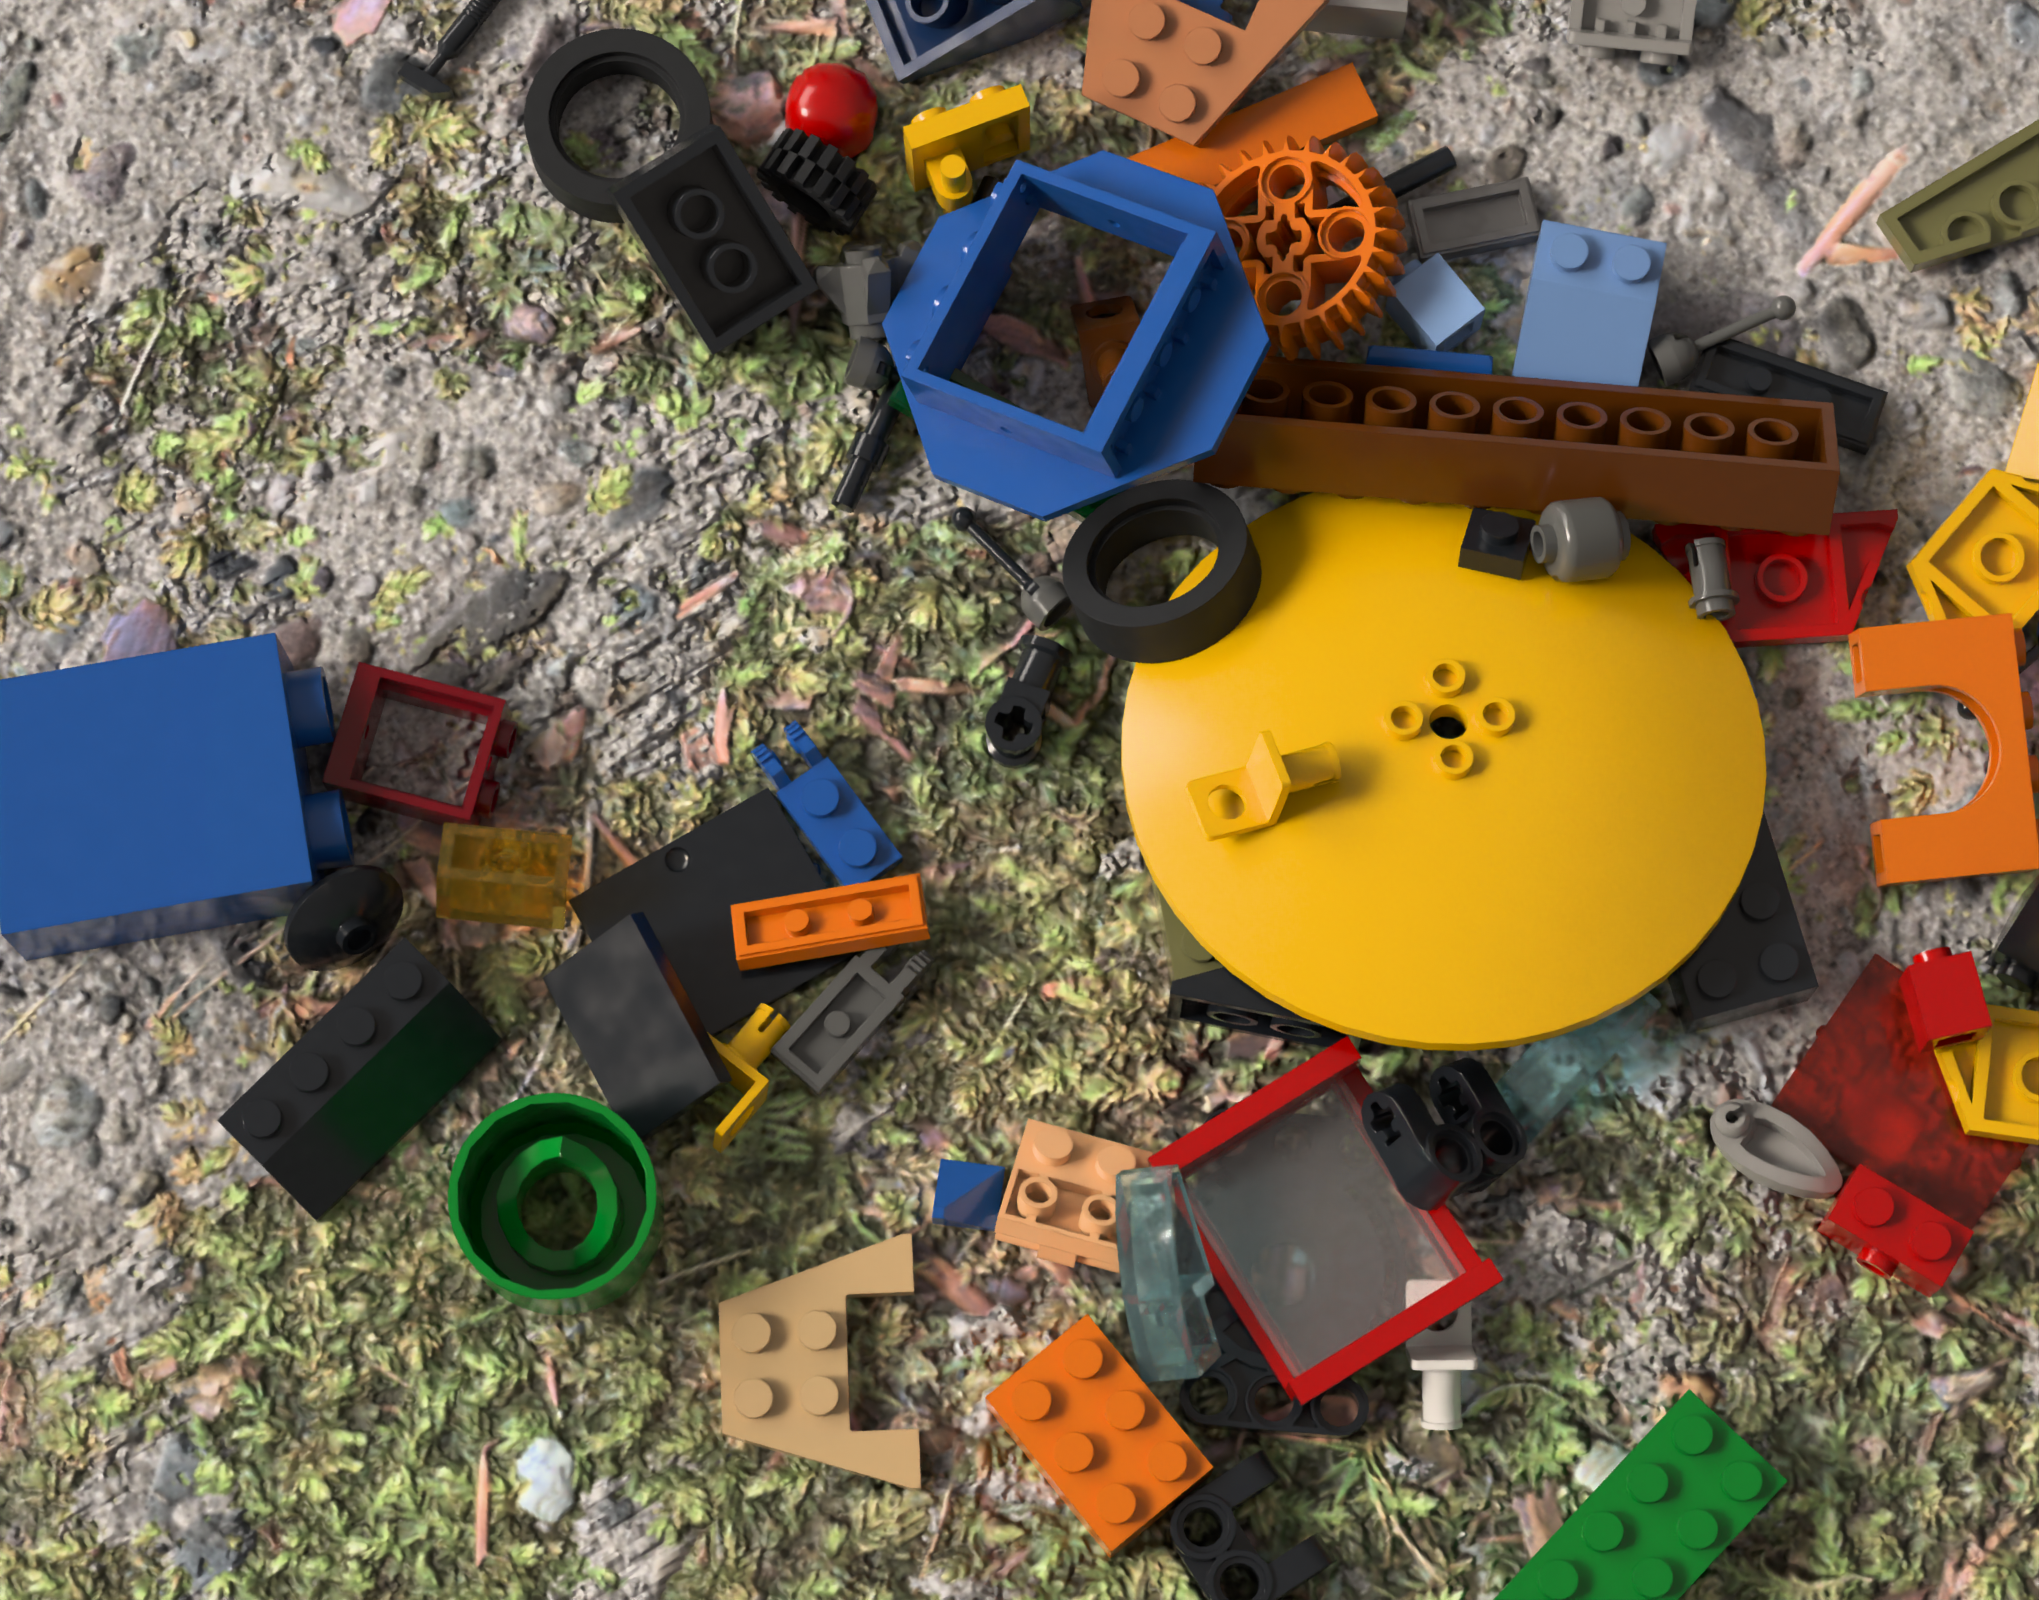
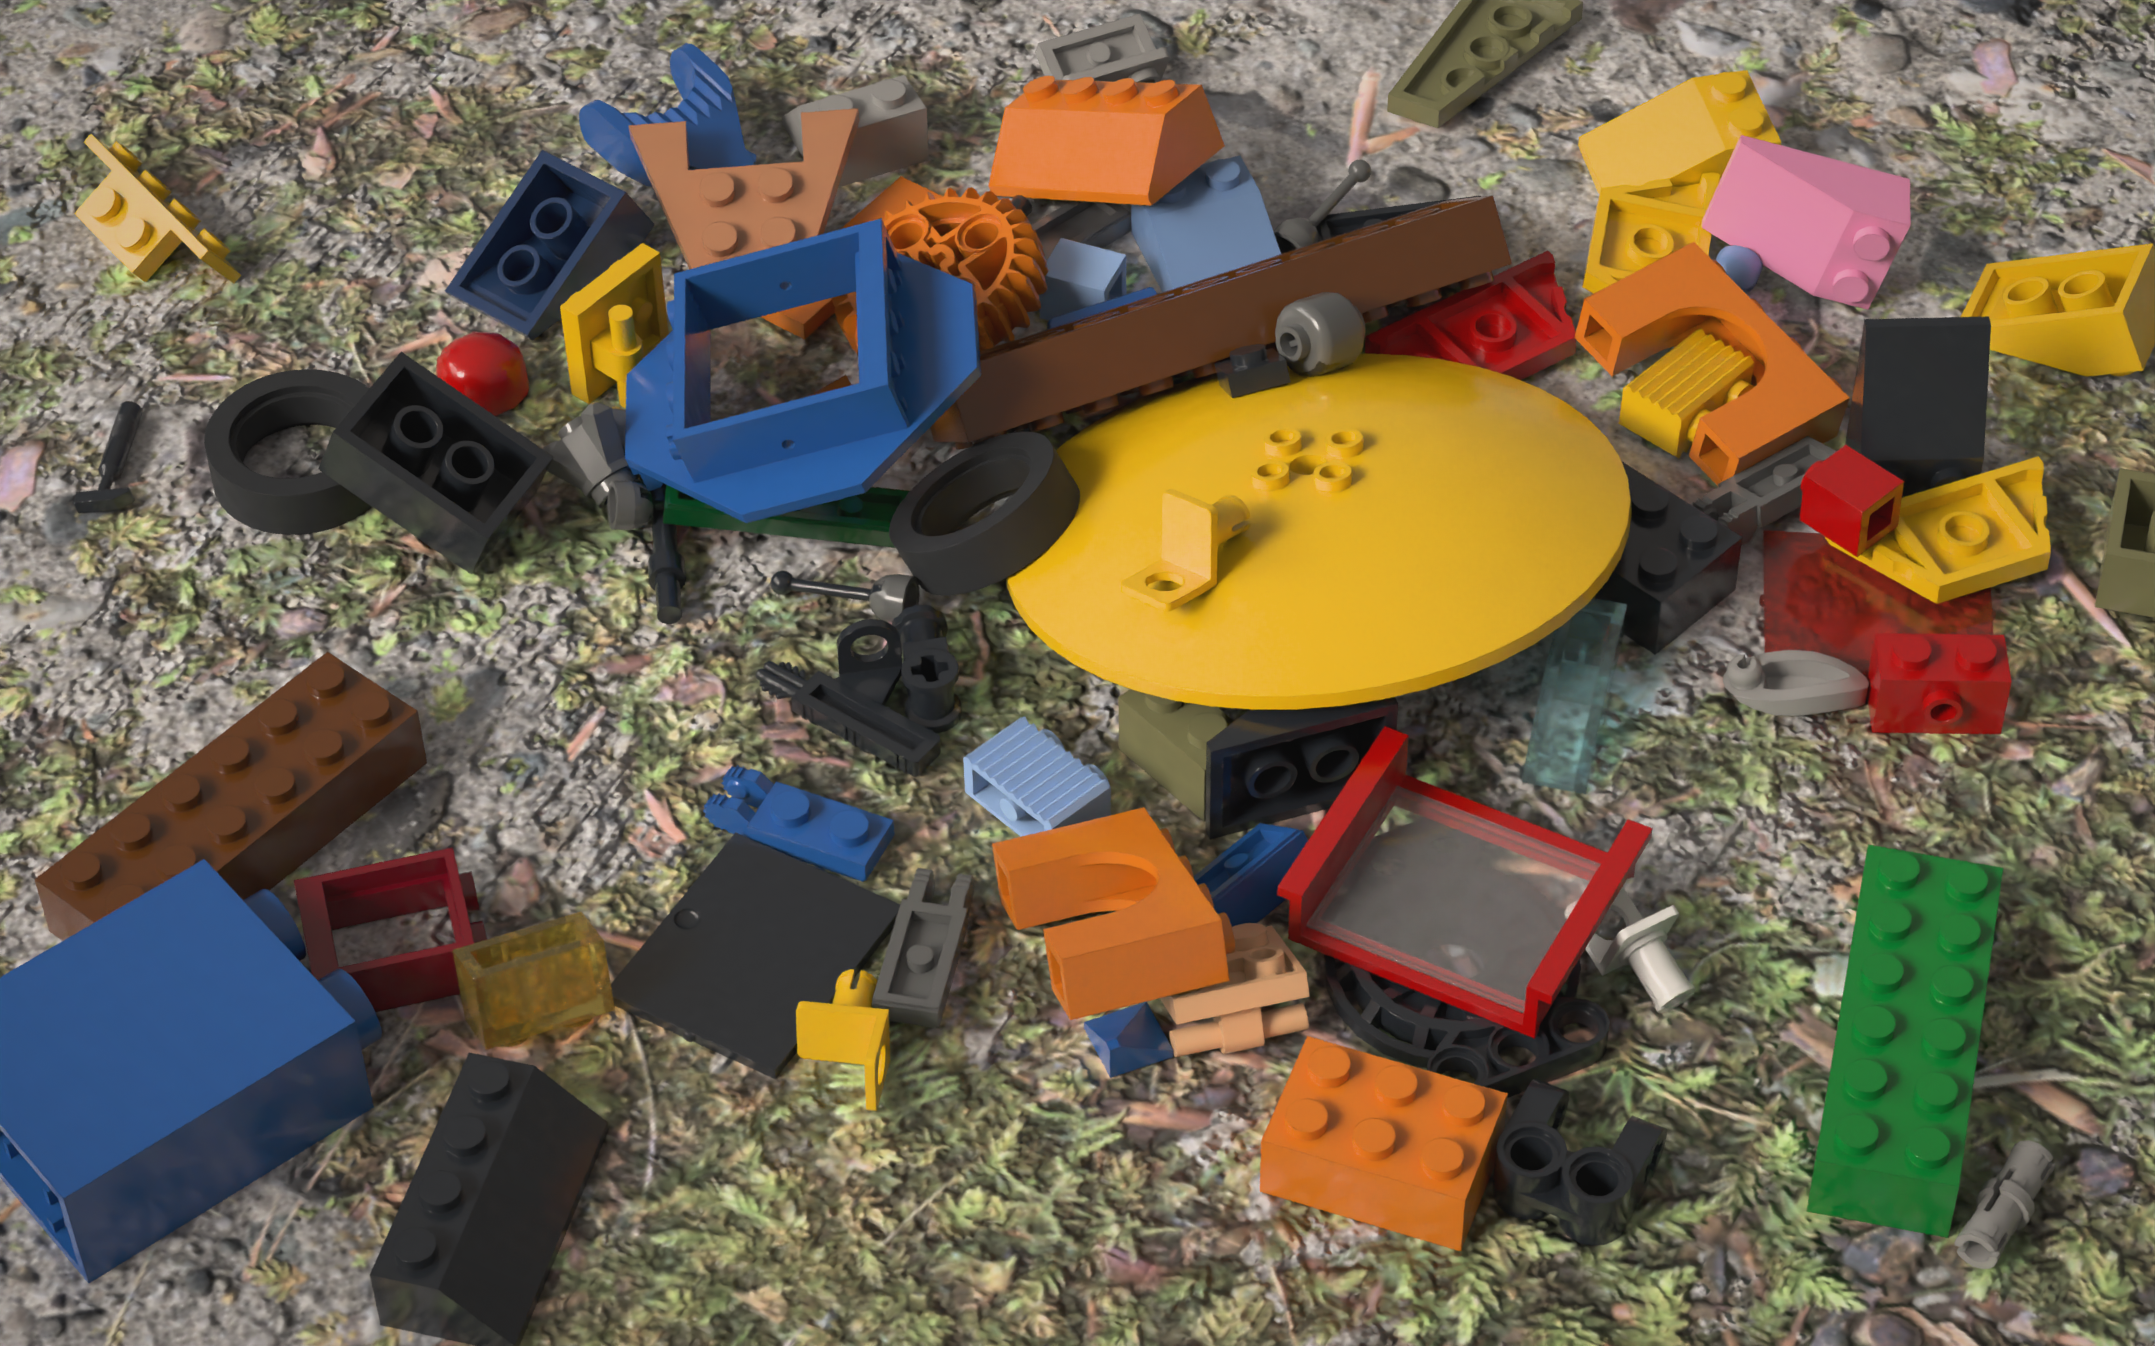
camera: 30 degrees left, 30 degrees down
(343, 918) = (397, 1076): black dish -> none
(357, 544) = (250, 798): none -> reddish brown brick
(526, 1144) = (743, 1133): green piece -> none
(637, 1027) = (736, 1037): black tile -> none
(790, 1365) = (1060, 1245): tan wing -> none
(817, 181) = (515, 381): black tyre -> none
(830, 922) = (861, 885): orange tile -> none
(944, 701) = (857, 699): none -> black piece
(1019, 1166) = (1163, 923): none -> orange arch
(1042, 896) = (1033, 781): none -> light blue brick
(1163, 1275) = (1352, 969): clear light blue slope -> none
(1167, 1085) = (1248, 873): none -> blue slope
(1450, 1158) = (1523, 787): black piece -> none
(1539, 159) = (1102, 140): none -> orange slope
(1710, 579) = (1441, 339): dark grey pin -> none
(1908, 918) = (1763, 490): none -> dark grey hinge
(1911, 759) = (1681, 388): none -> yellow brick

